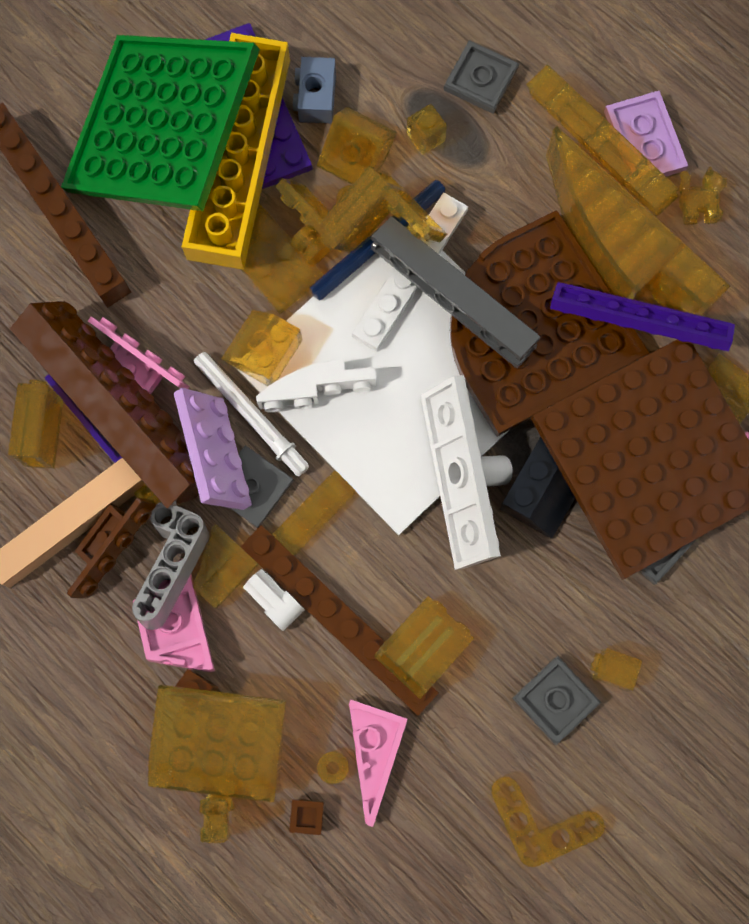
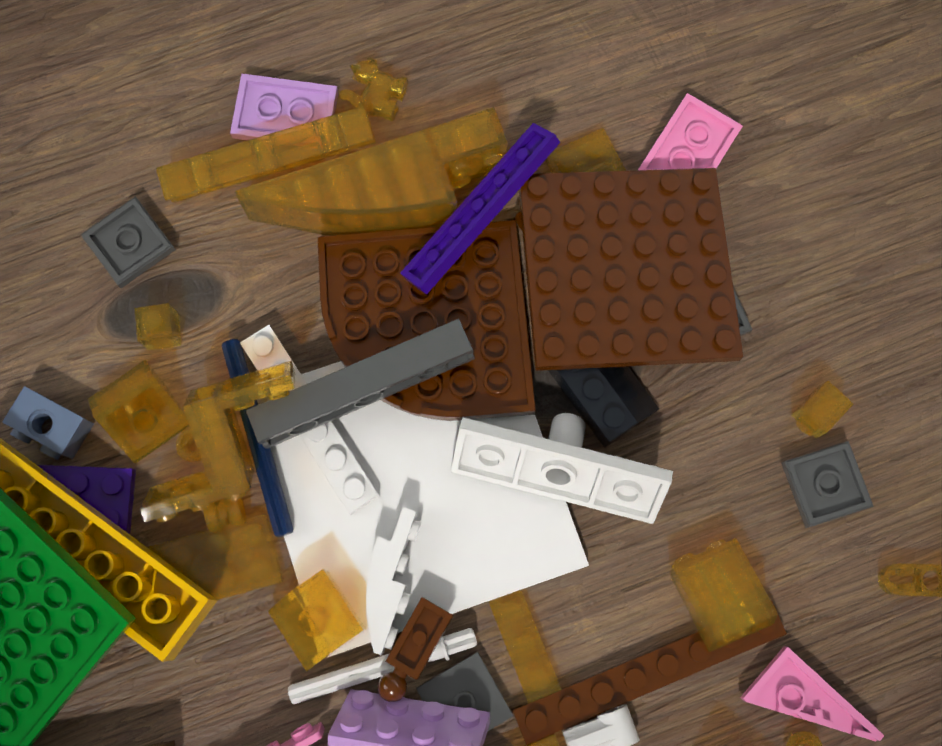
camera: 70 degrees left, 0 degrees up
(273, 426) = (413, 648): none -> reddish brown plate

